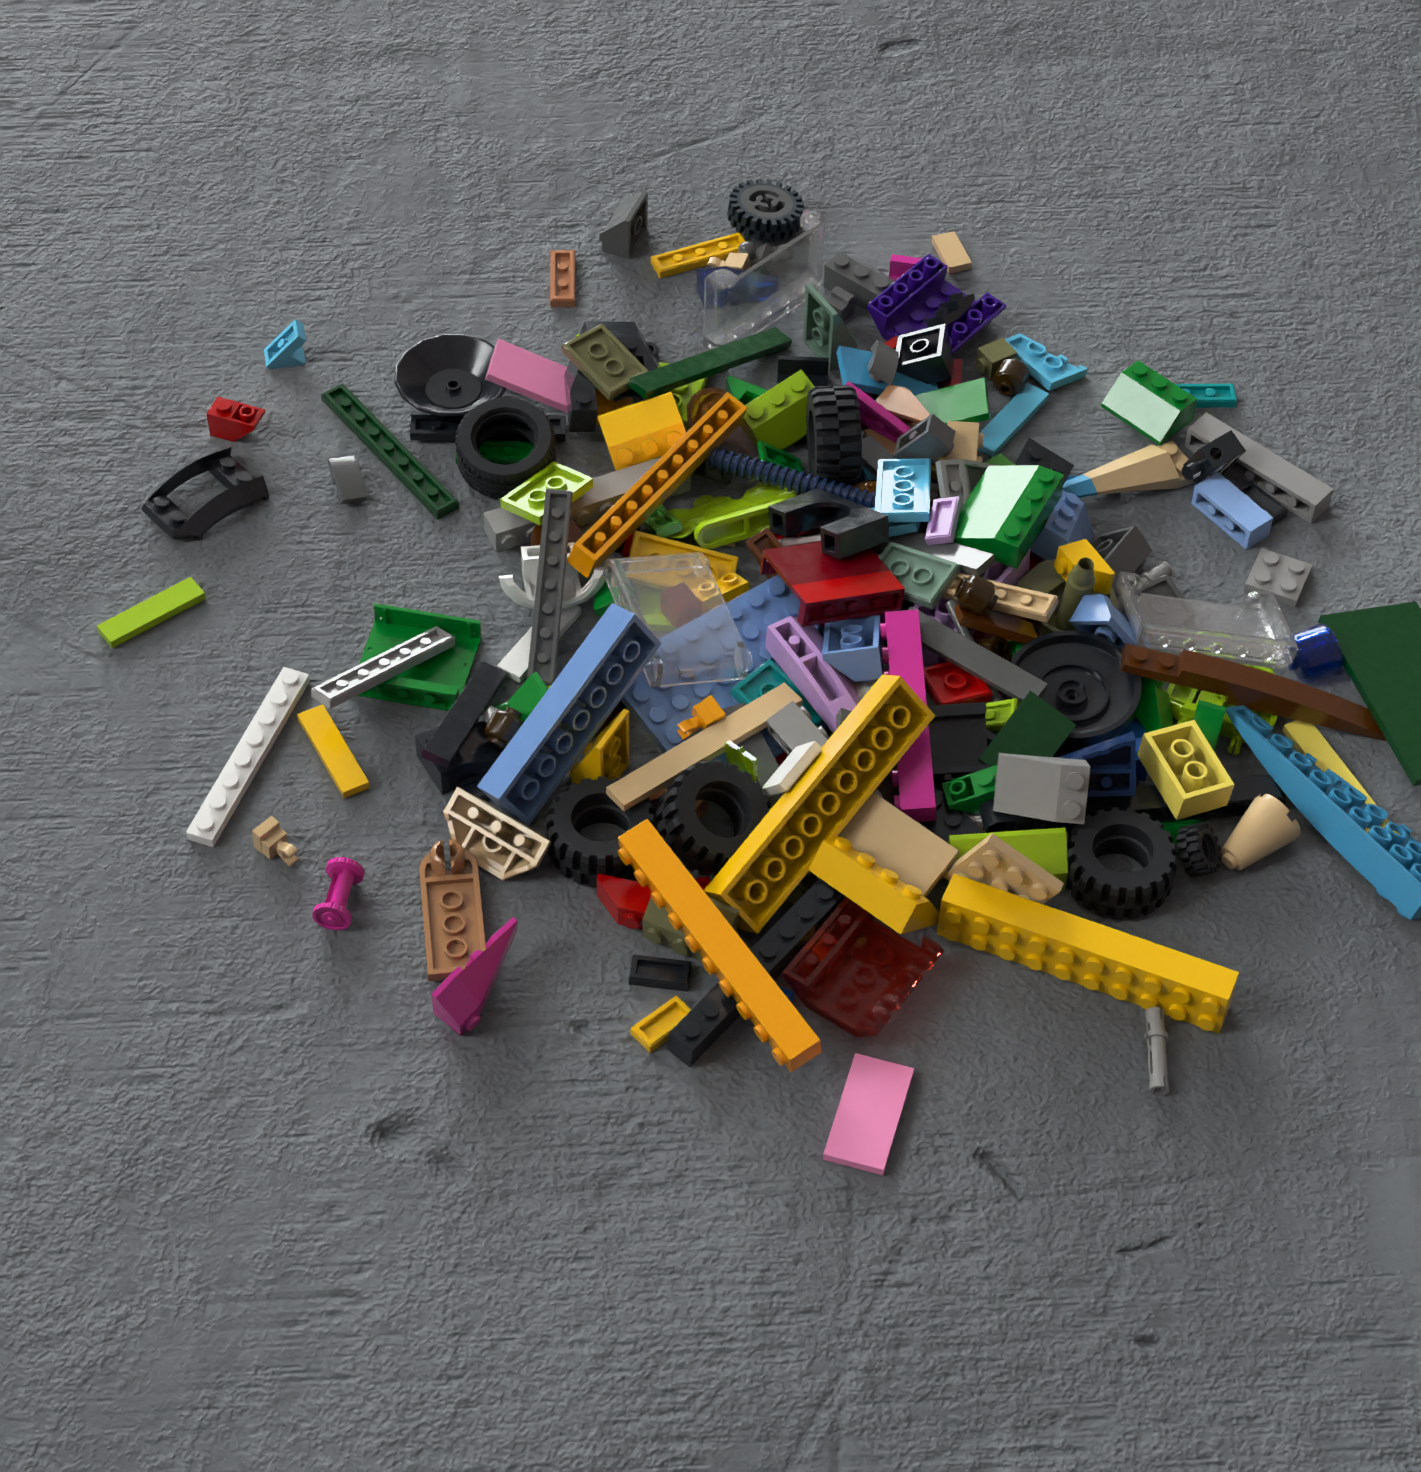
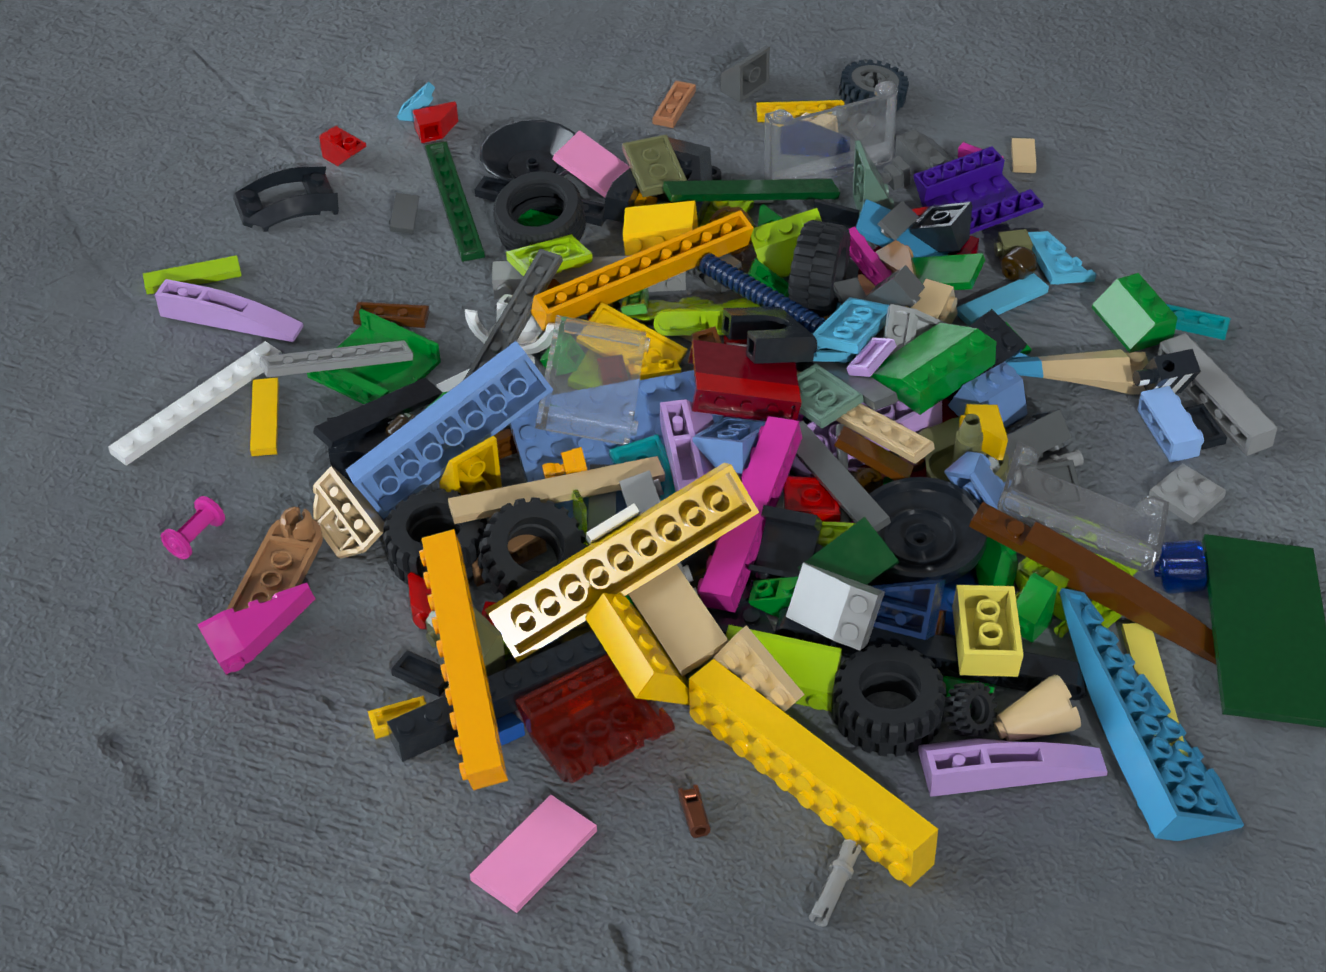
camera: 25 degrees right, 5 degrees down
(219, 644) = (224, 311): none -> lavender wedge
(273, 840) = (170, 471): tan piece -> none
(315, 363) = (435, 121): none -> red slope
(412, 596) = (400, 314): none -> reddish brown tile
(951, 309) = (990, 195): black slope -> none
(976, 594) = (858, 421): dark brown head -> none
(996, 1026) = (694, 811): none -> copper bar
(1243, 893) = (997, 764): none -> lavender wedge

